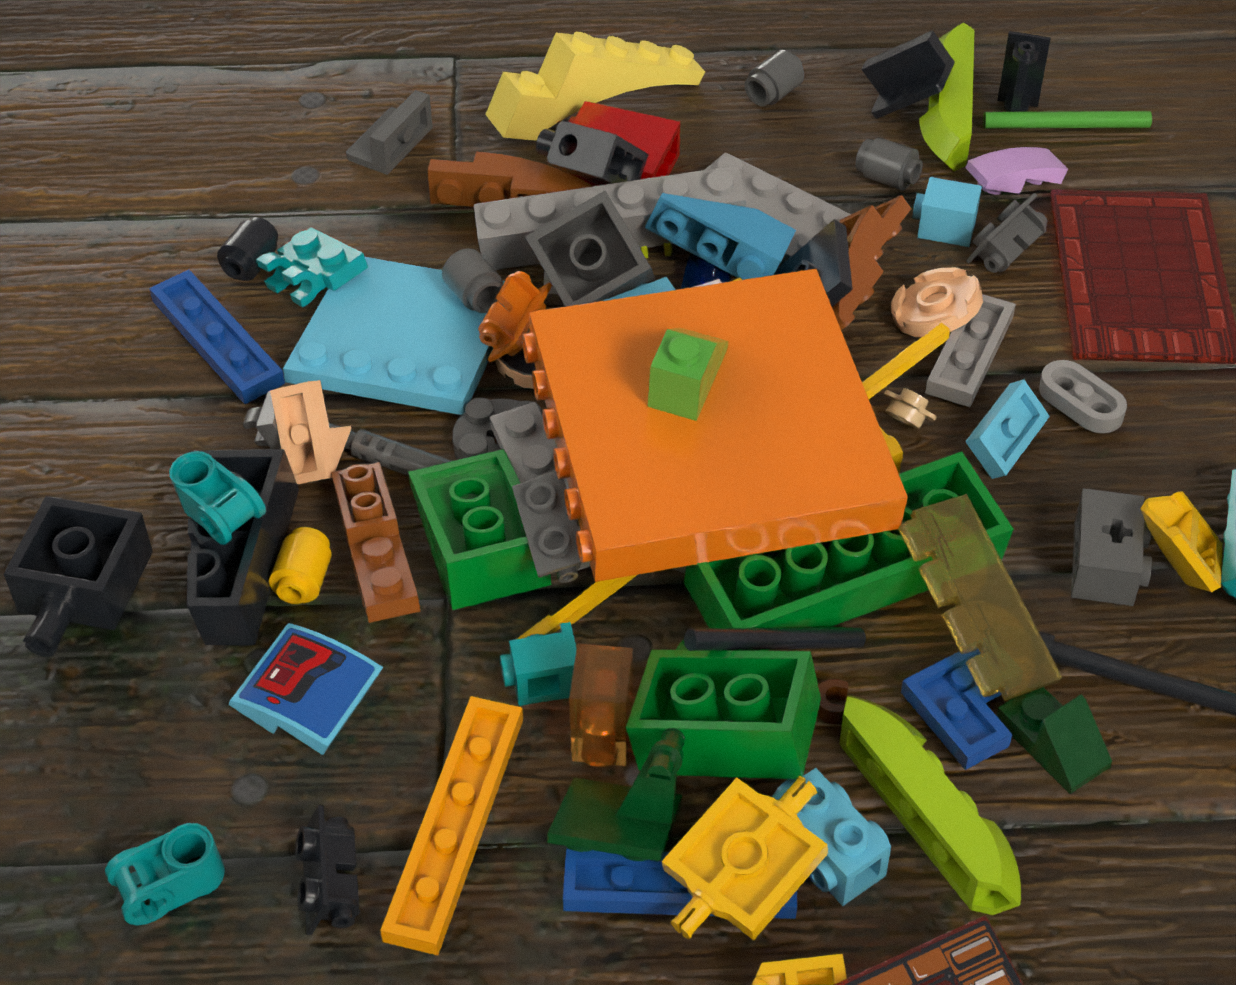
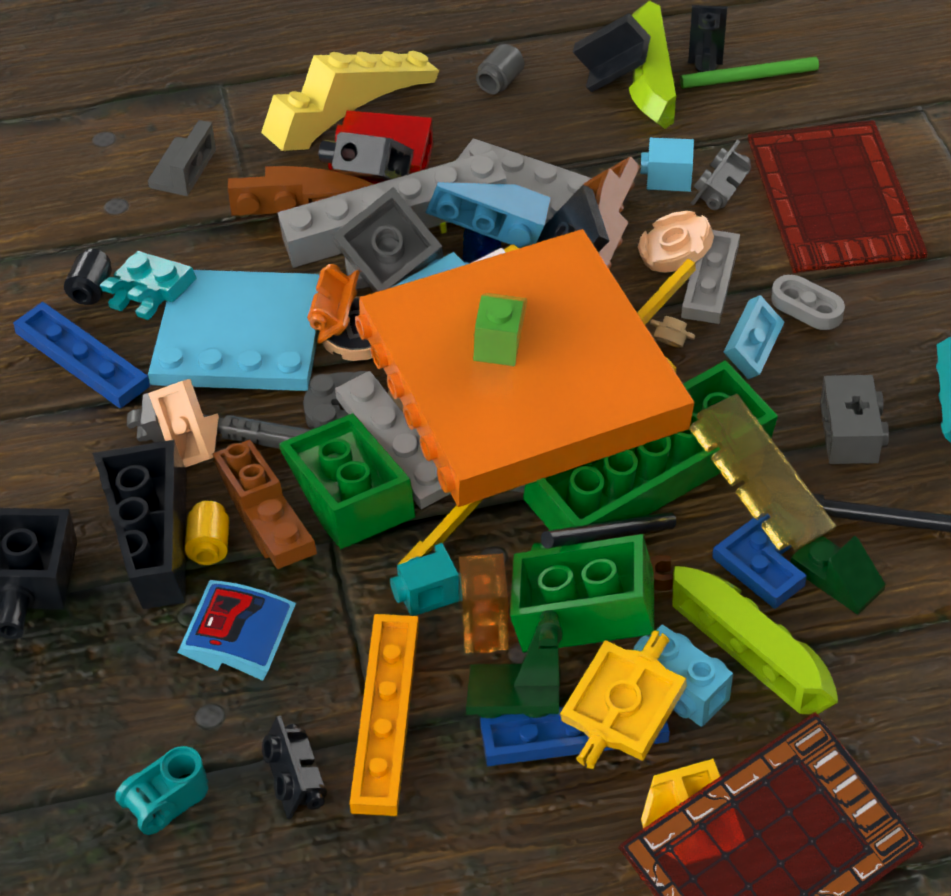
camera: 10 degrees left, 0 degrees up
(214, 495) = (130, 485): teal piece -> none
(472, 279) = (291, 277): dark grey brick -> none
(548, 526) = (410, 469): dark grey hinge -> none
(889, 163) = (611, 129): dark grey brick -> none
(1011, 167) = (714, 119): lavender slope -> none
(1185, 540) = (910, 405): yellow slope -> none

